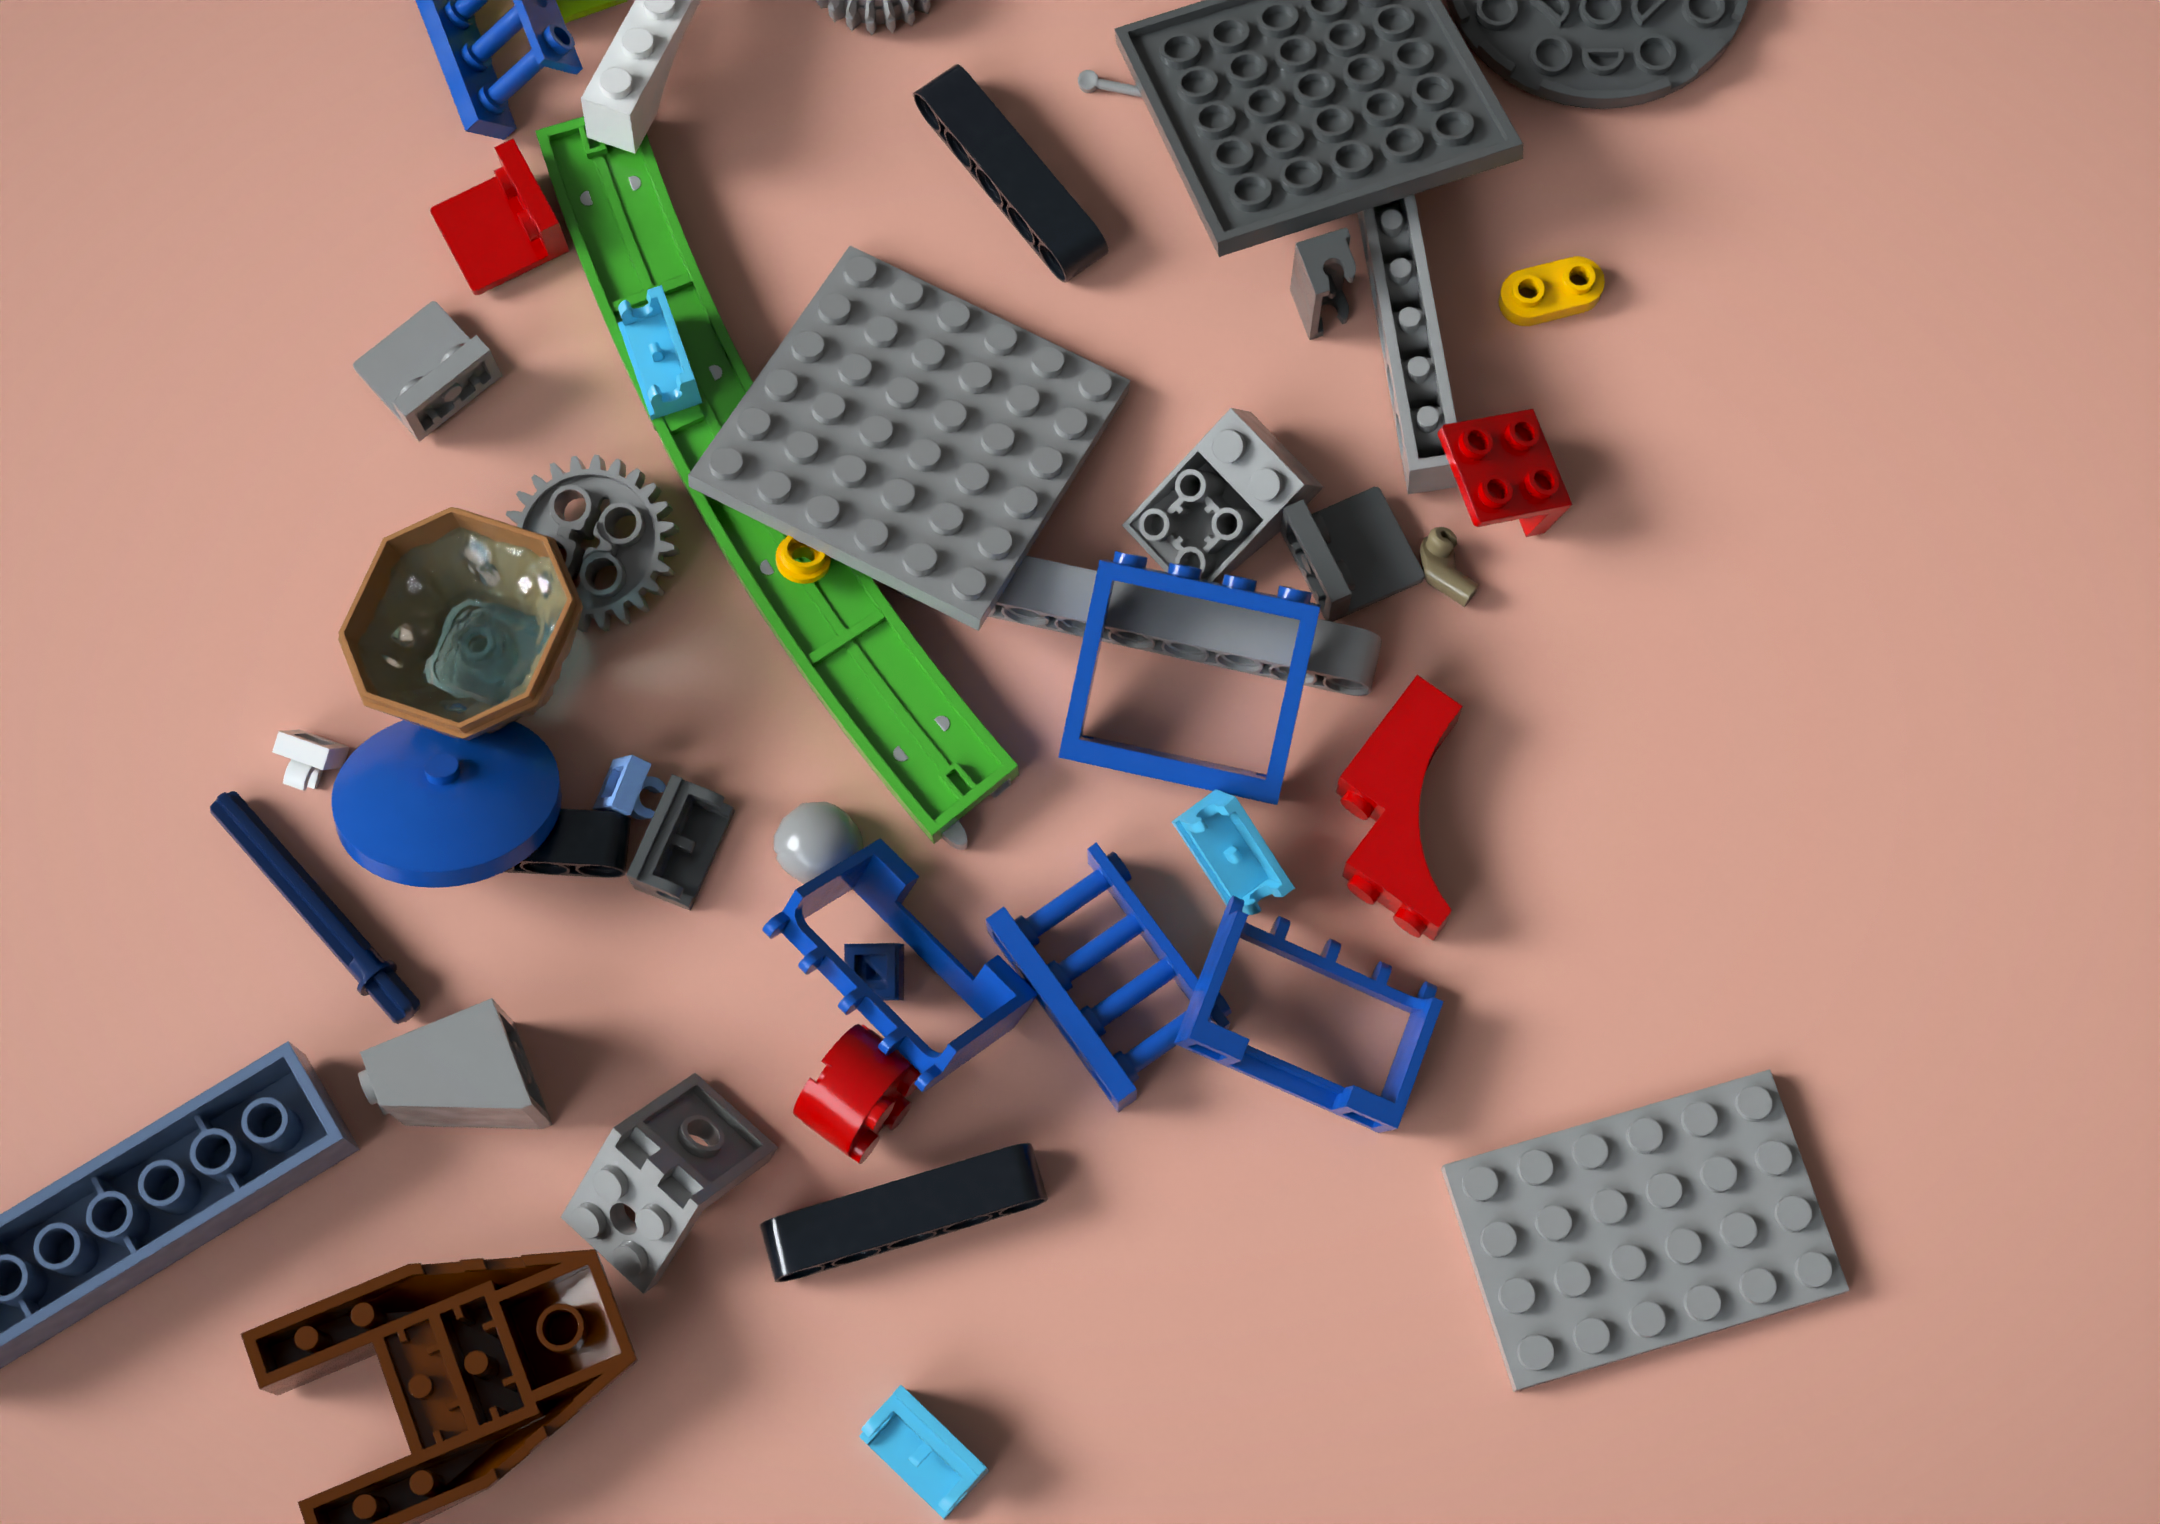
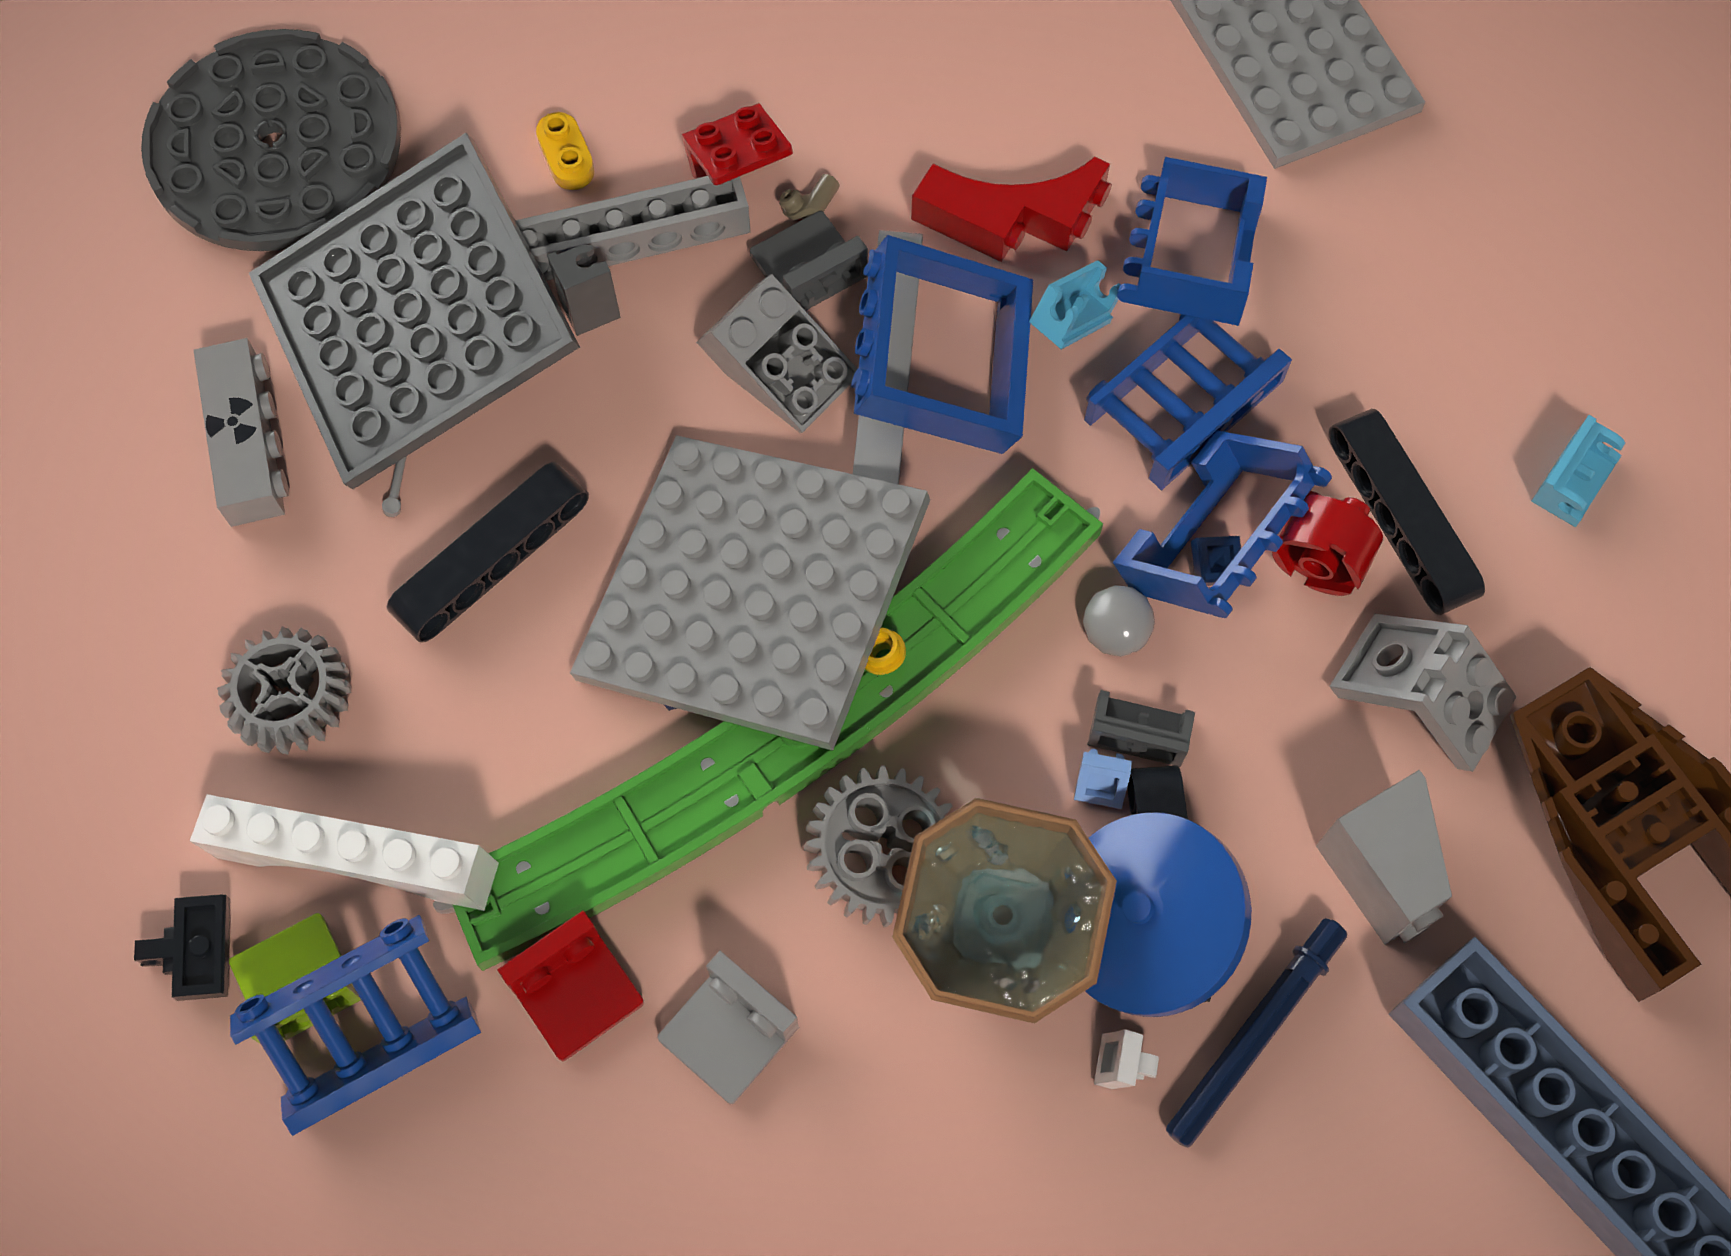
camera: 100 degrees left, 5 degrees down
(658, 355) = (706, 799): medium azure hinge -> none

